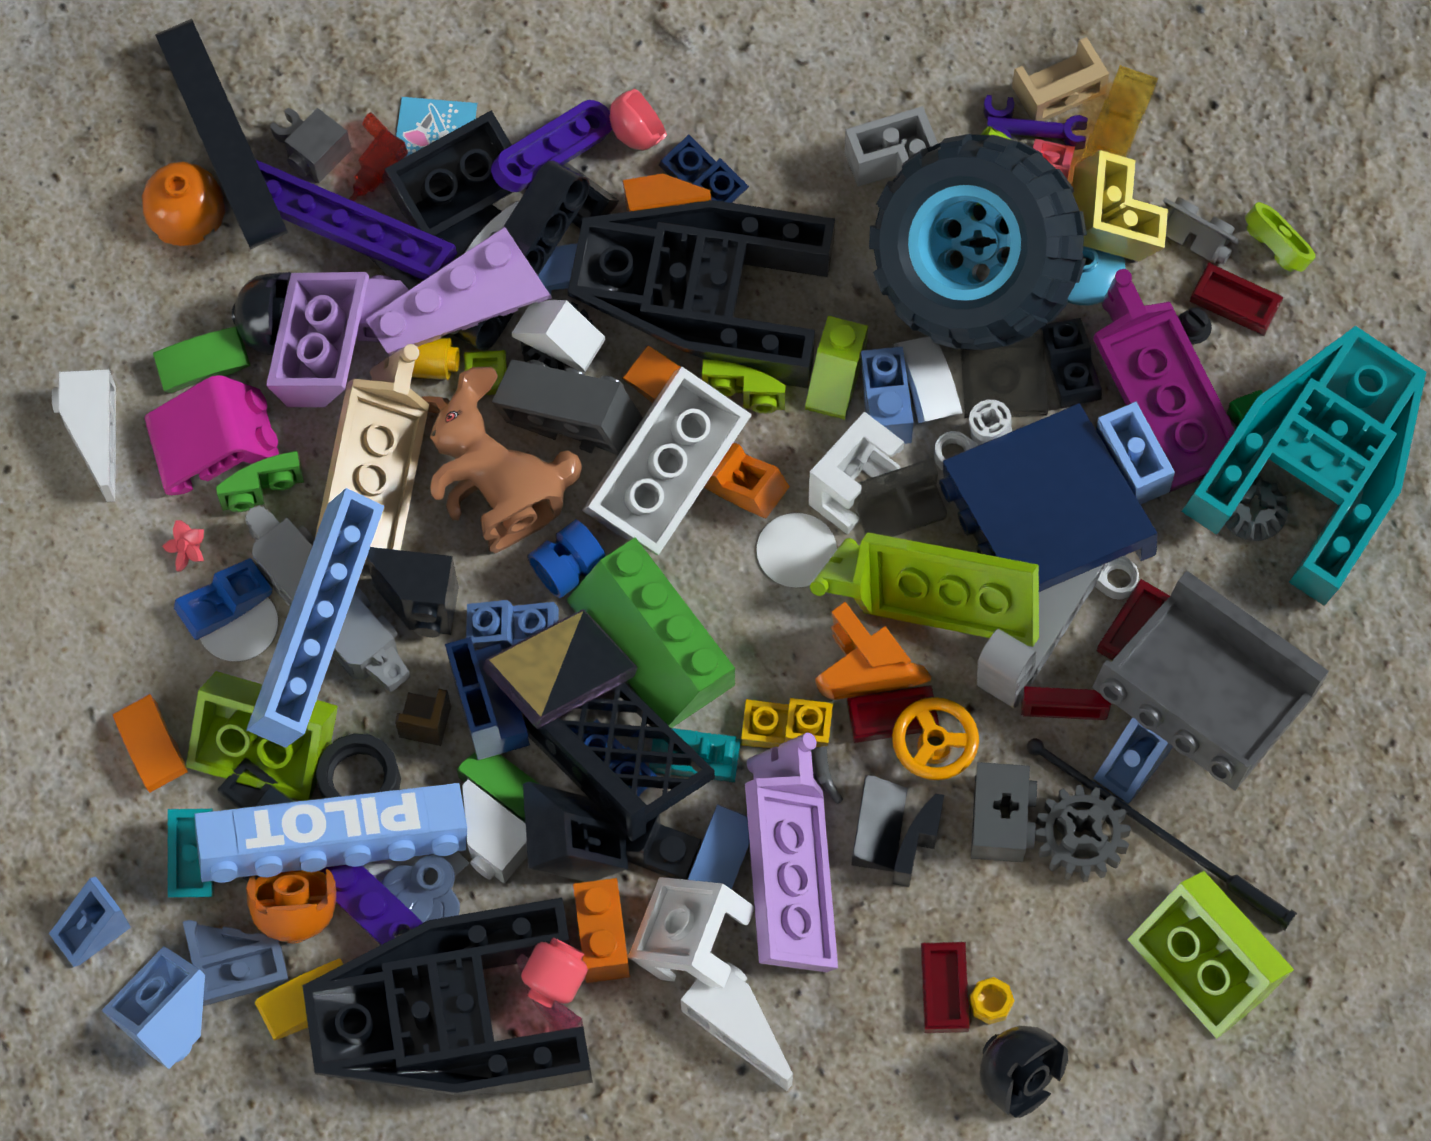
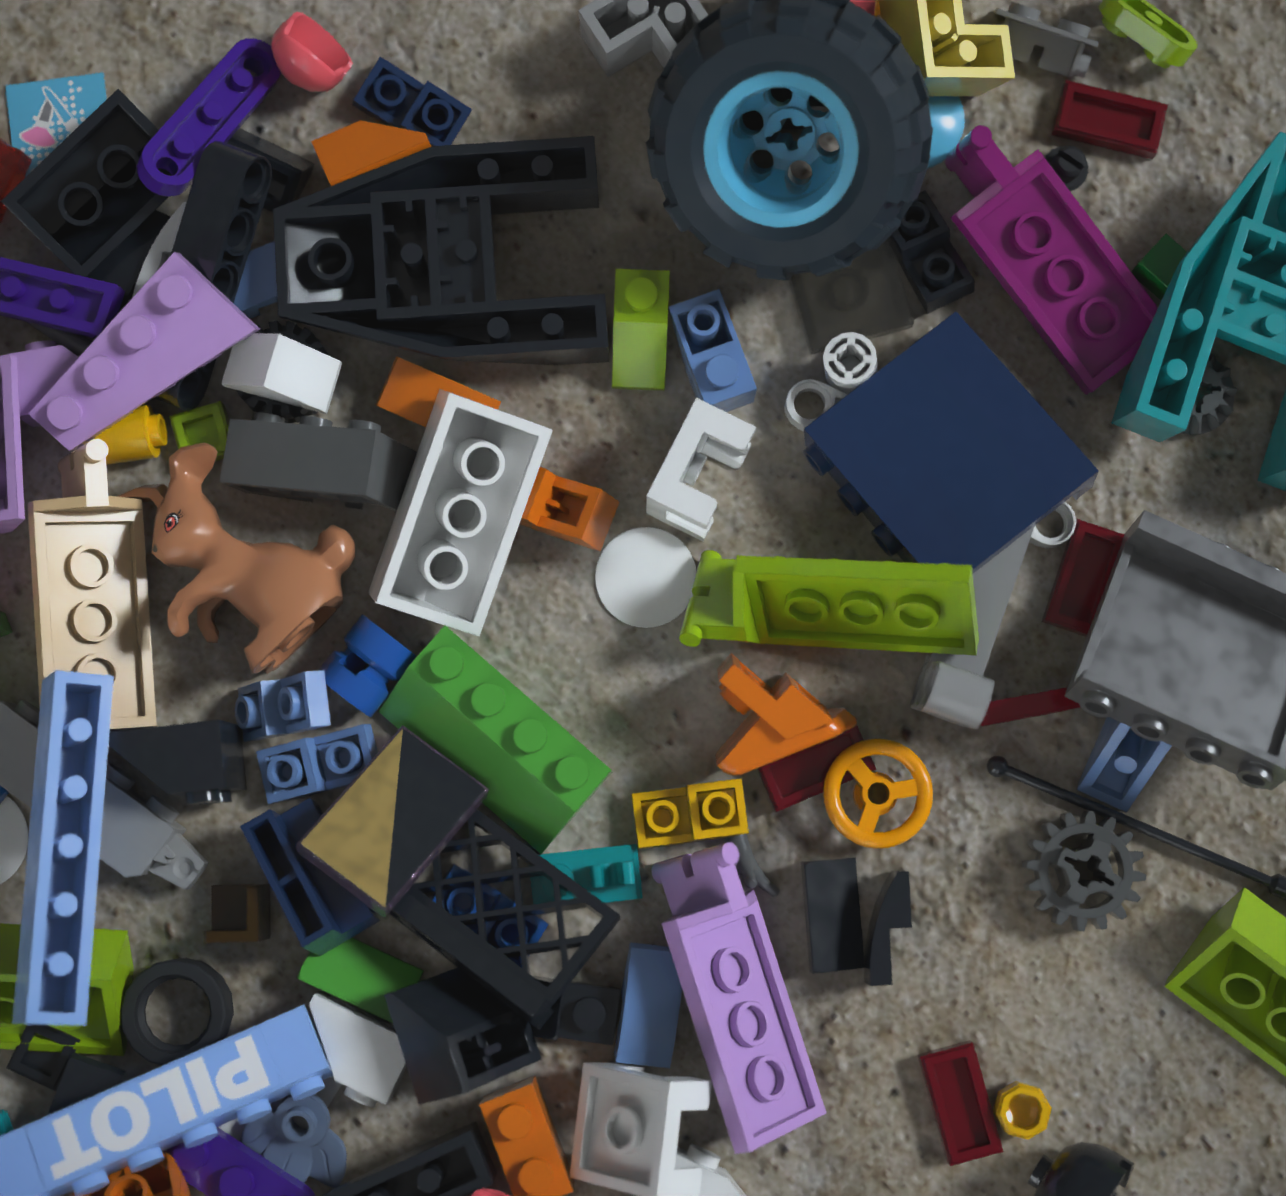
camera: 15 degrees left, 15 degrees up
(497, 574) = (283, 706): none -> medium blue slope
(759, 390) = (550, 382): lime slope -> none
(900, 500) = (760, 488): clear smoke panel -> none
(929, 380) = (759, 319): white slope -> none
(995, 836) = (968, 896): dark grey brick -> none
(1136, 452) = (1040, 358): light blue brick -> none

